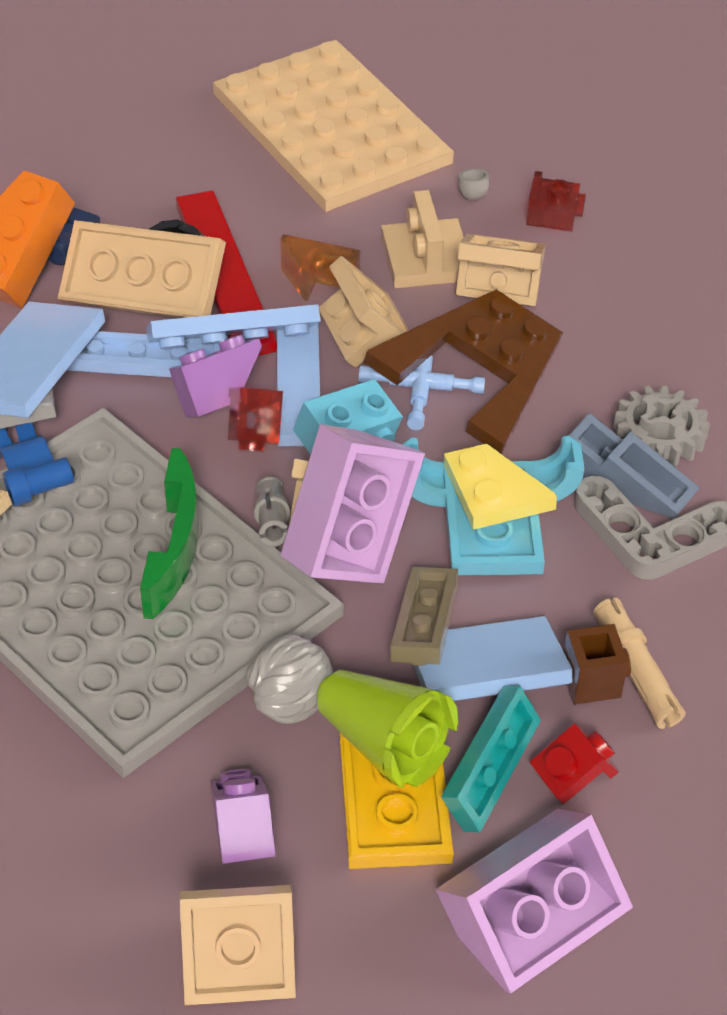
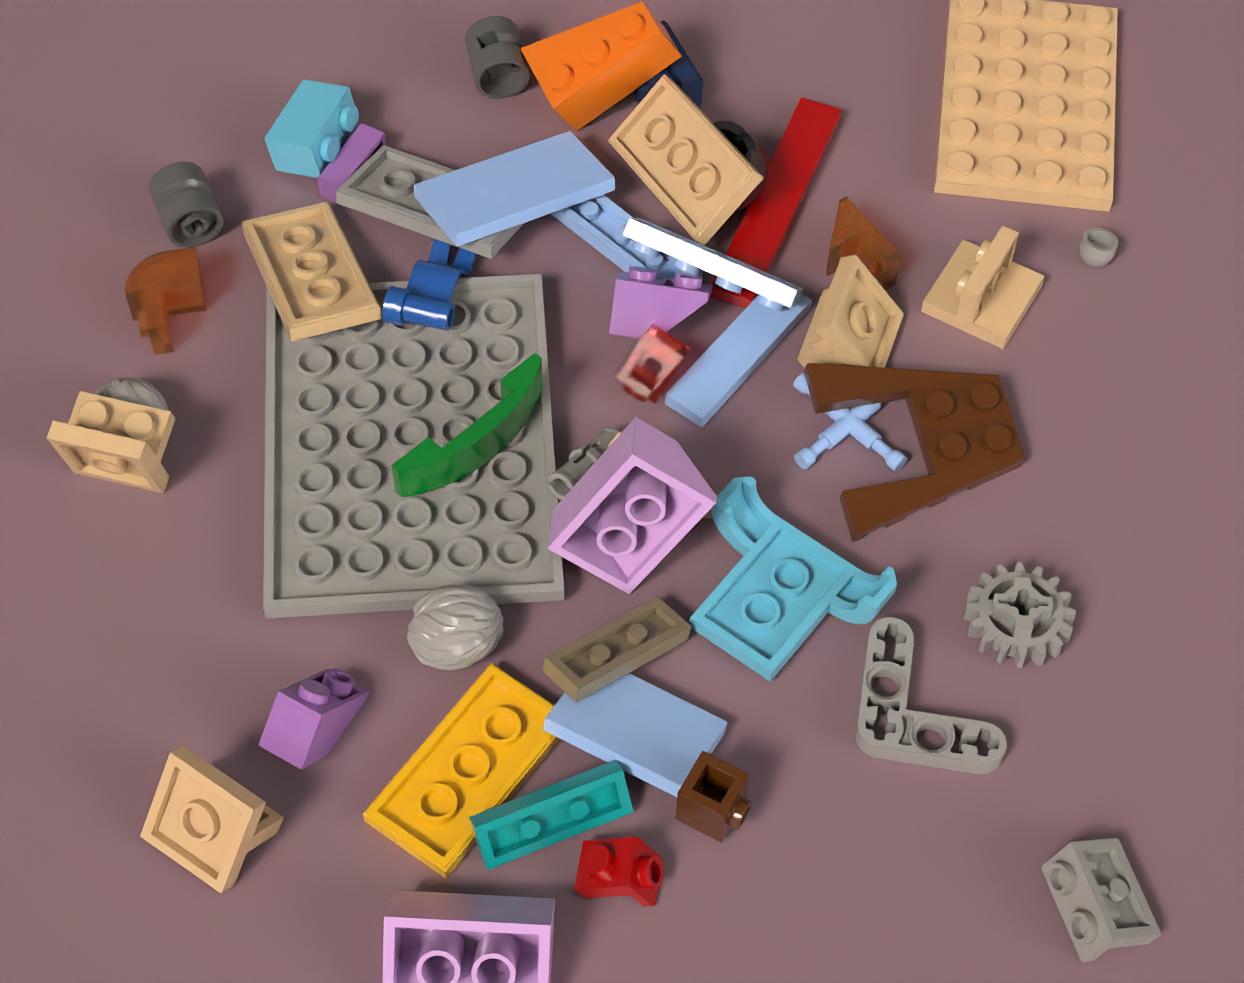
camera: 40 degrees right, 10 degrees up
(355, 407) = (727, 424): medium azure brick -> none
(390, 723) = (481, 727): lime cone -> none
(494, 487) = (791, 571): light yellow wing -> none
(502, 265) = (1026, 351): tan bracket -> none
(554, 203) = (1155, 316): clear red brick -> none
(633, 468) = (943, 635): sand blue slope -> none
(644, 670) = (771, 802): tan pin -> none

